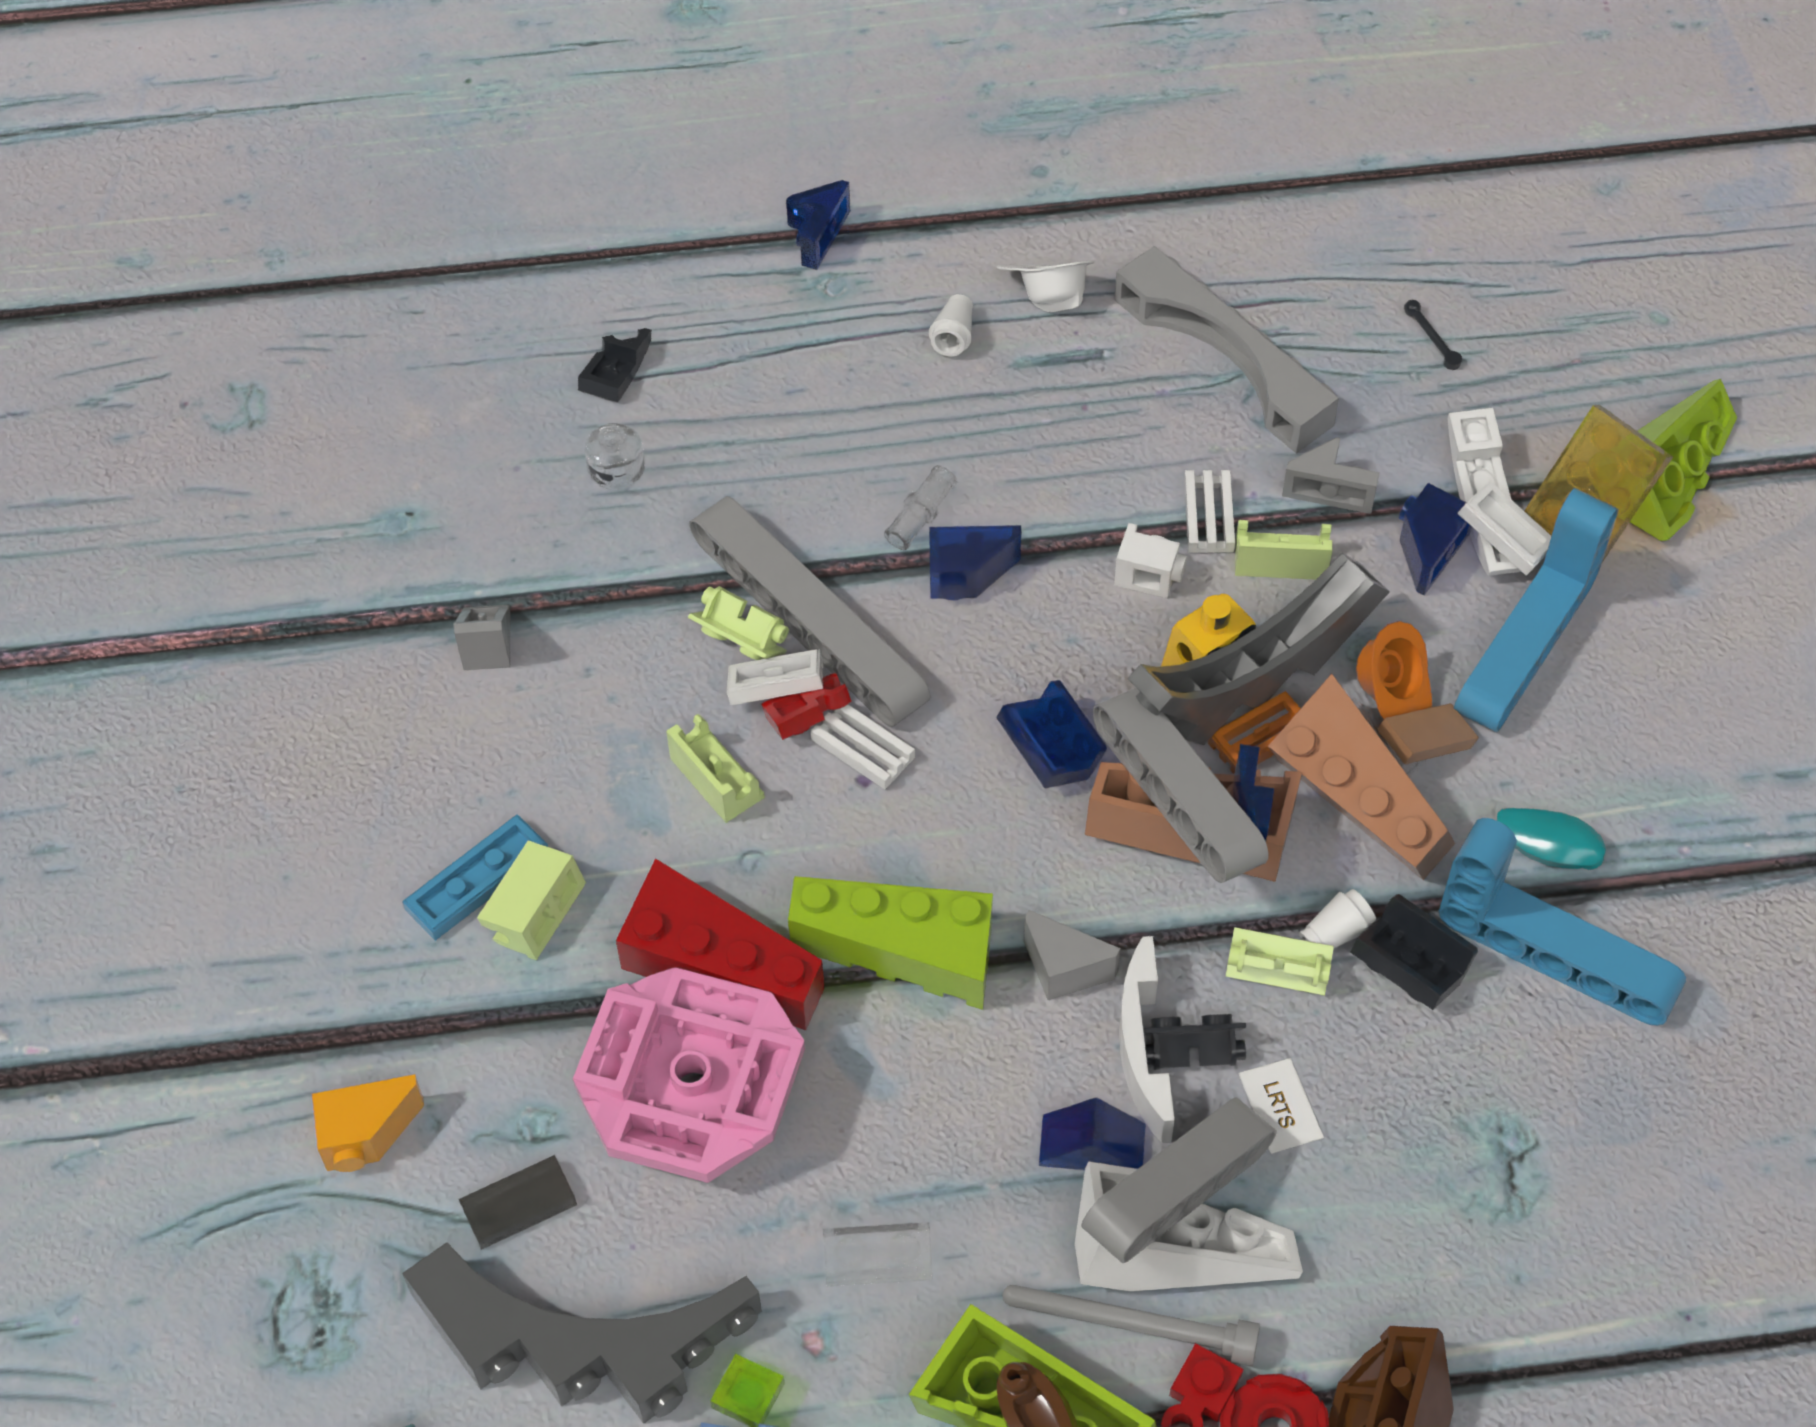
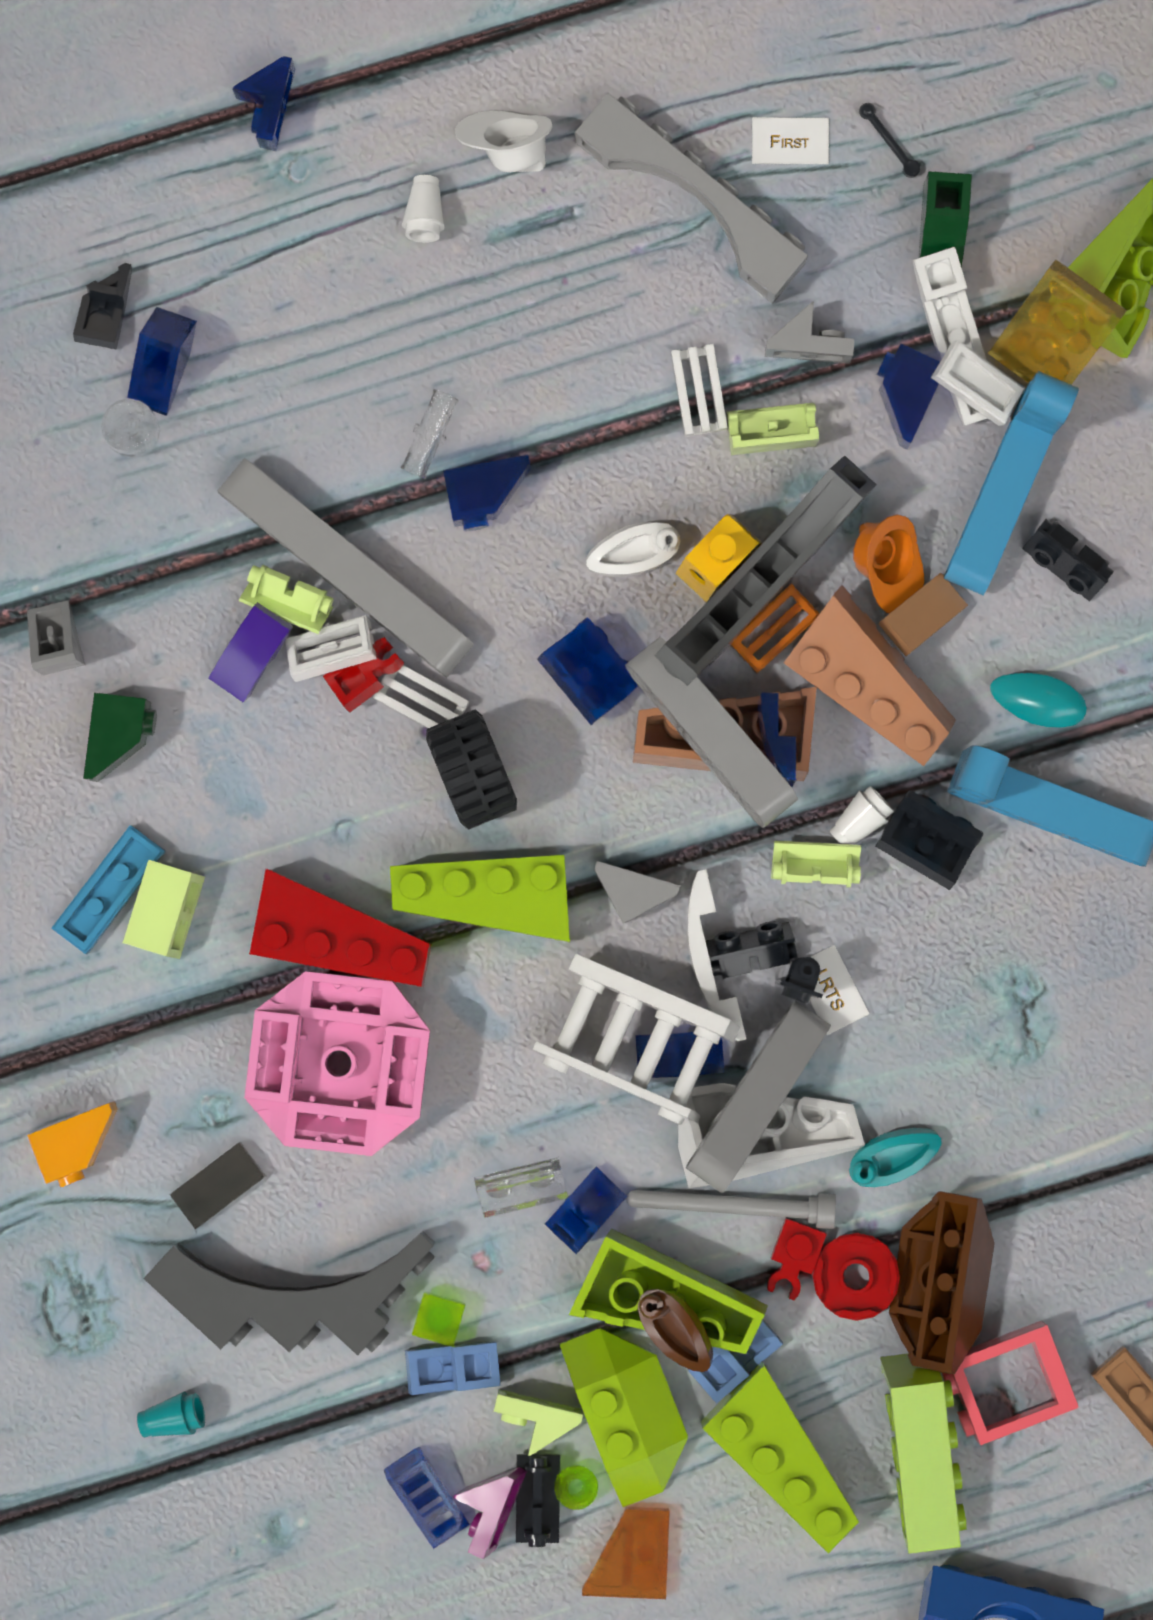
camera: 10 degrees left, 30 degrees up
(525, 723) = (116, 732): none -> dark green slope
(662, 405) = (161, 359): none -> clear blue slope
(689, 663) = (250, 652): none -> dark purple slope
(713, 770) = (295, 750): yellowish green hinge -> none
(905, 794) = (471, 769): none -> black tyre
(947, 1288) = (585, 1210): none -> clear blue slope
(1046, 1052) = (669, 1013): none -> white fence
(1118, 638) = (634, 549): none -> white arm
(1148, 563) = (651, 465): white brick -> none
(1244, 1067) = (801, 980): none -> black hinge
(1331, 324) = (790, 140): none -> white sticker
(1337, 1295) = (894, 1156): none -> teal arm
(1487, 377) = (945, 213): none -> dark green slope
(1592, 712) = (1081, 572): none -> black hinge

